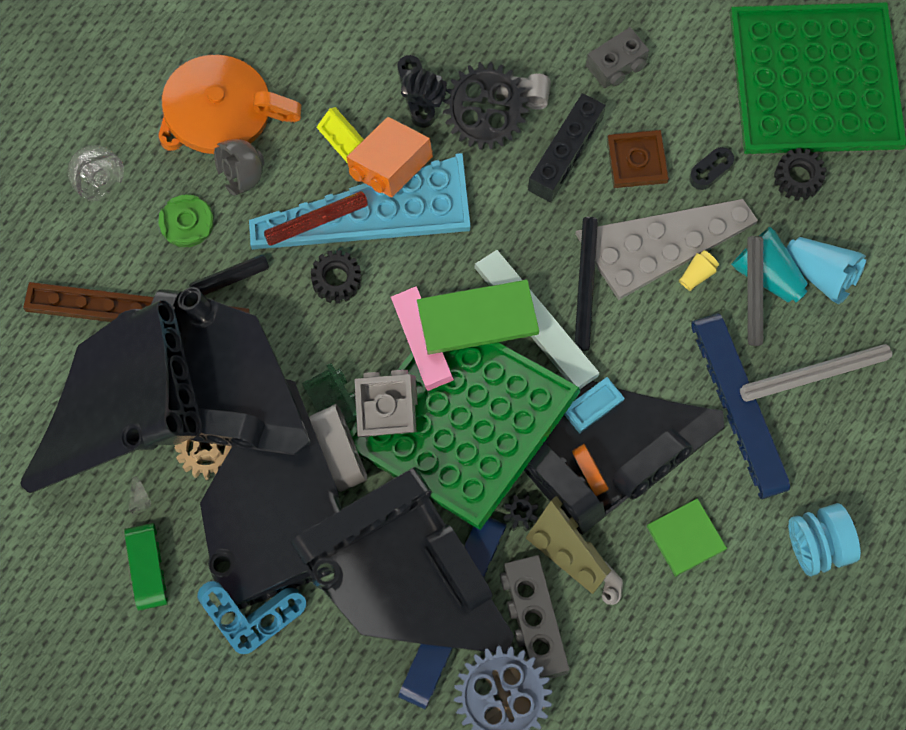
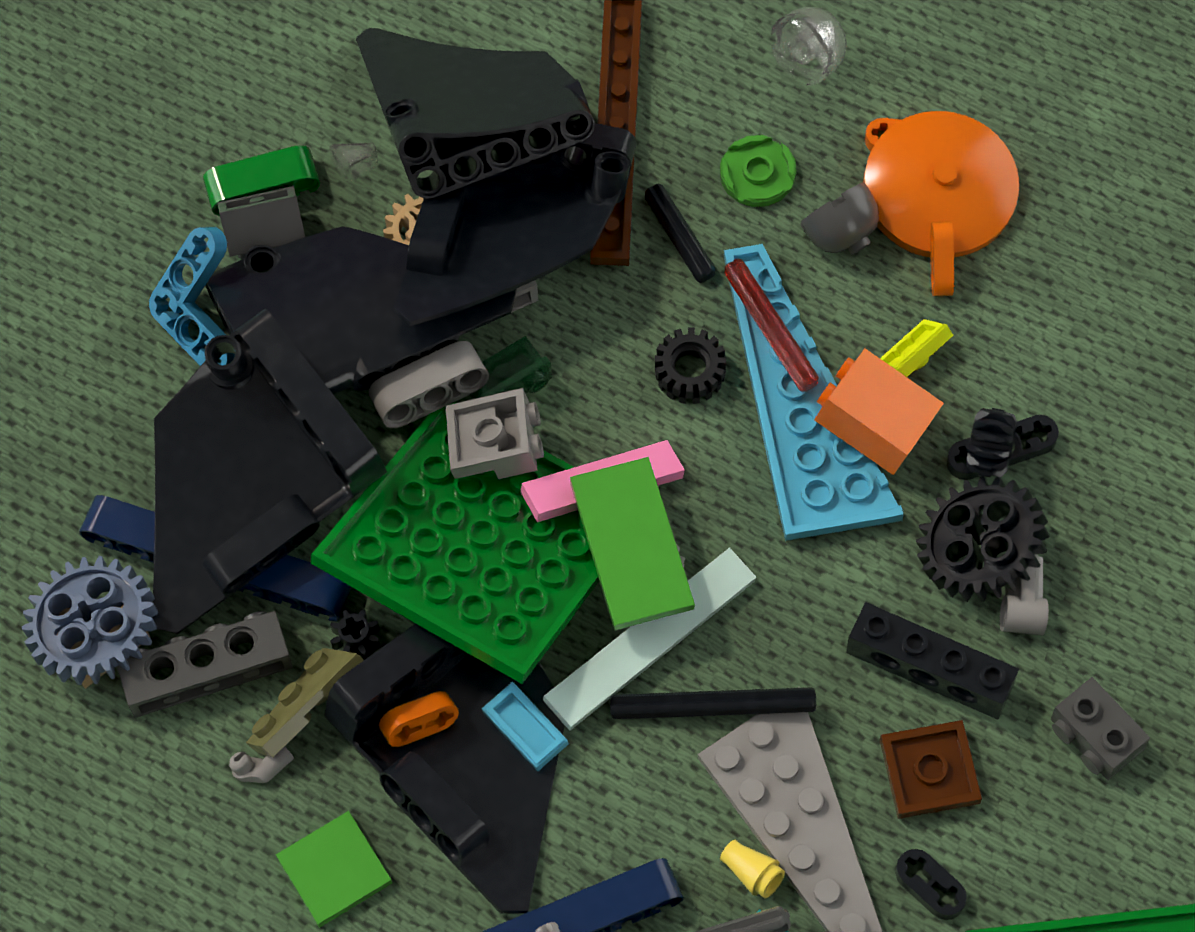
camera: 90 degrees right, 5 degrees down
(184, 563) = (261, 220): none -> dark grey brick

